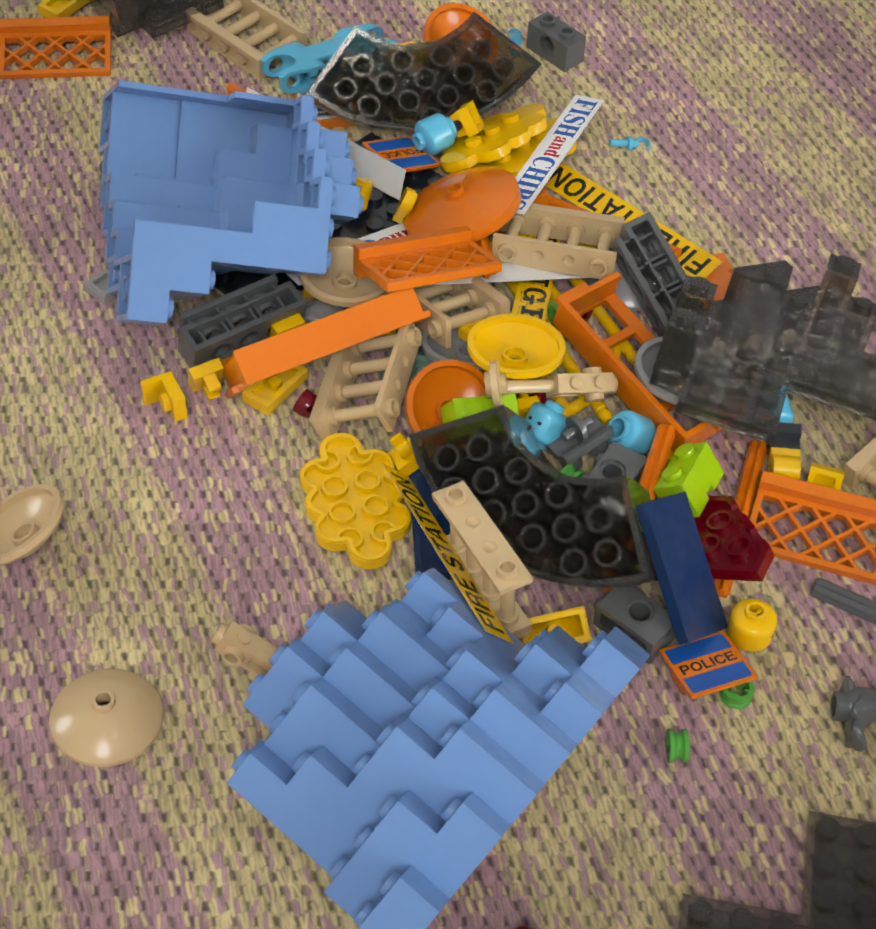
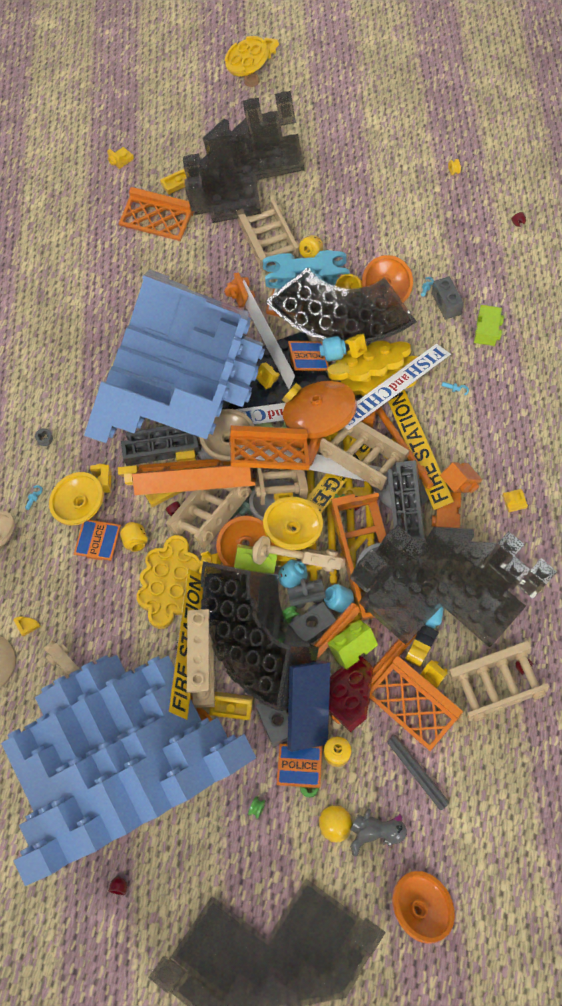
camera: 30 degrees right, 15 degrees up
(28, 368) = (41, 433): none -> dark grey bush
(59, 460) = (33, 497): none -> medium azure hand
(142, 431) = (70, 493): none -> yellow dish
(148, 638) = (26, 625): none -> yellow tile
(206, 481) = (97, 540): none -> piece
(265, 456) = (133, 536): none -> yellow head
(332, 23) = (310, 246): none -> yellow head
(632, 58) = (488, 325): none -> lime brick
(713, 233) = (461, 477): none -> orange brick
(796, 247) = (515, 500): none -> yellow tile
(805, 723) = (335, 823): none -> yellow hair

